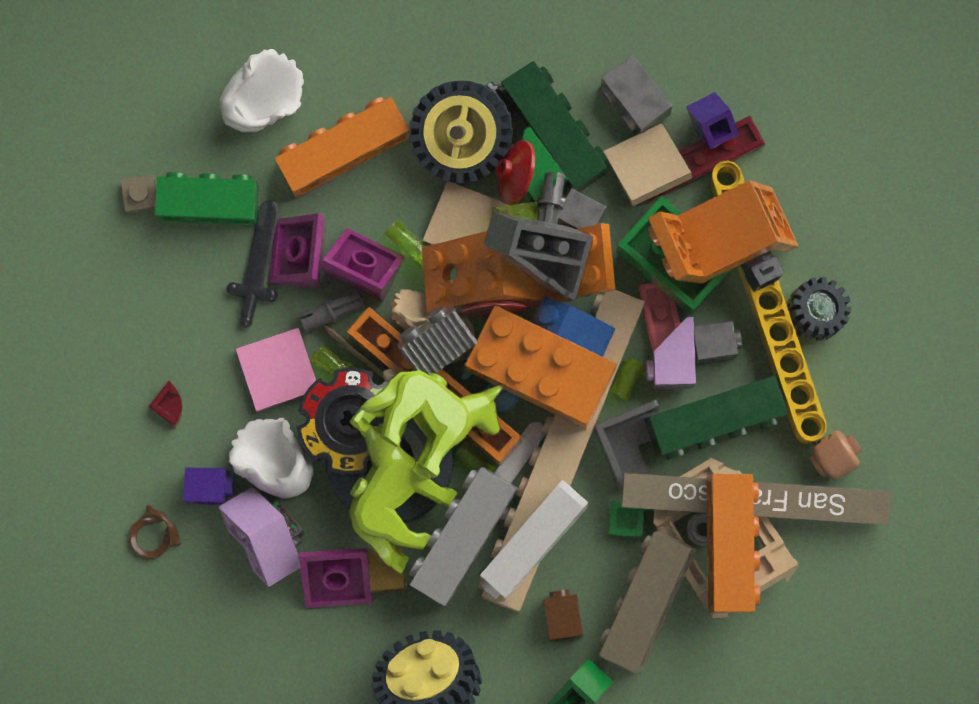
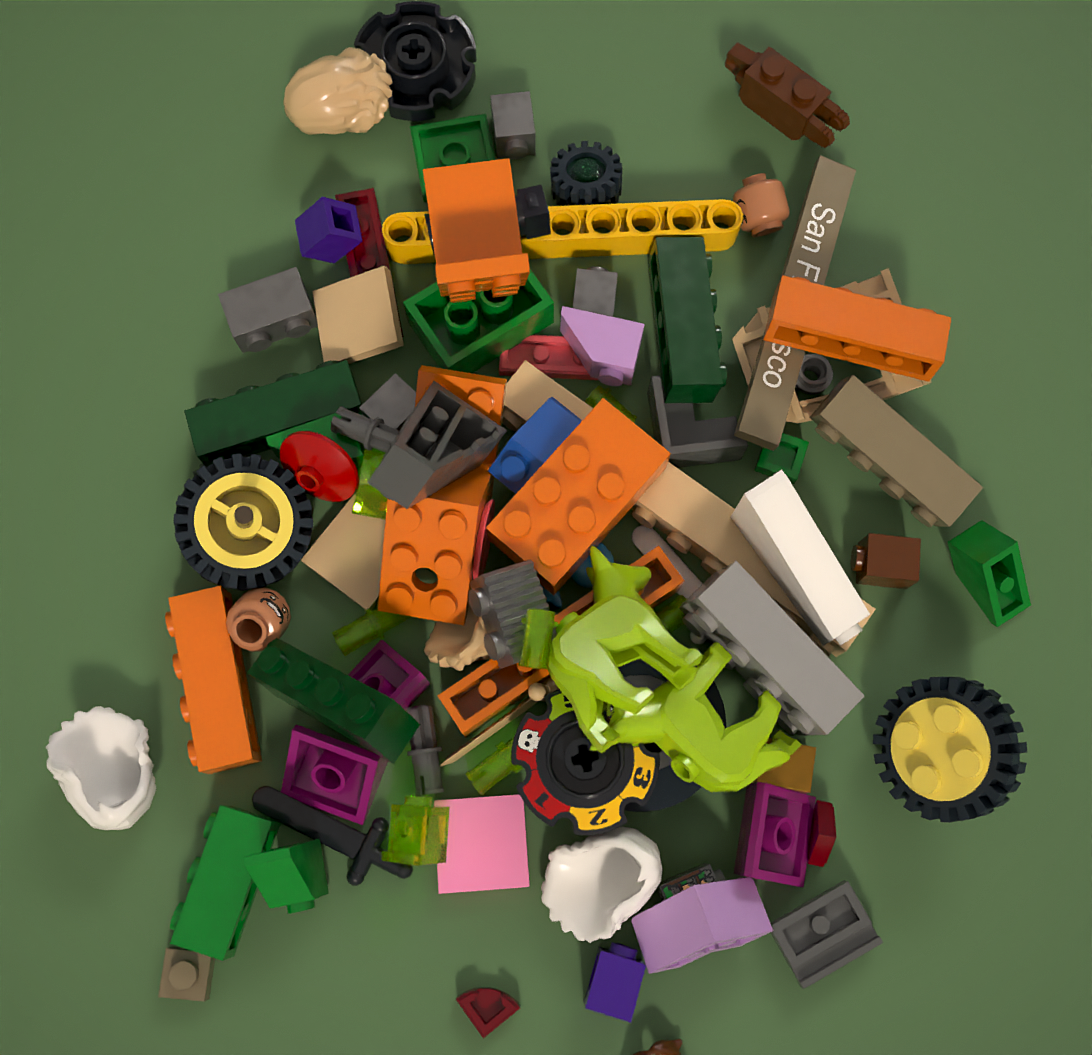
camera: 80 degrees left, 5 degrees down
(222, 242) = (290, 875): none -> green slope
(273, 321) = (417, 832): none -> clear neon green brick
(276, 627) = (824, 934): none -> dark grey plate
(346, 234) = (335, 699): none -> dark green brick
(346, 610) = (822, 833): none -> dark red tile
(393, 164) = (258, 619): none -> nougat head
(419, 360) = (537, 638): none -> clear neon green pin
(813, 199) = (451, 143): none -> green tile
(835, 92) = (339, 93): none -> tan piece
(850, 238) = (513, 125): none -> flat silver brick
(899, 122) = (424, 55): none -> black piece
(942, 451) = (785, 95): none -> reddish brown hinge

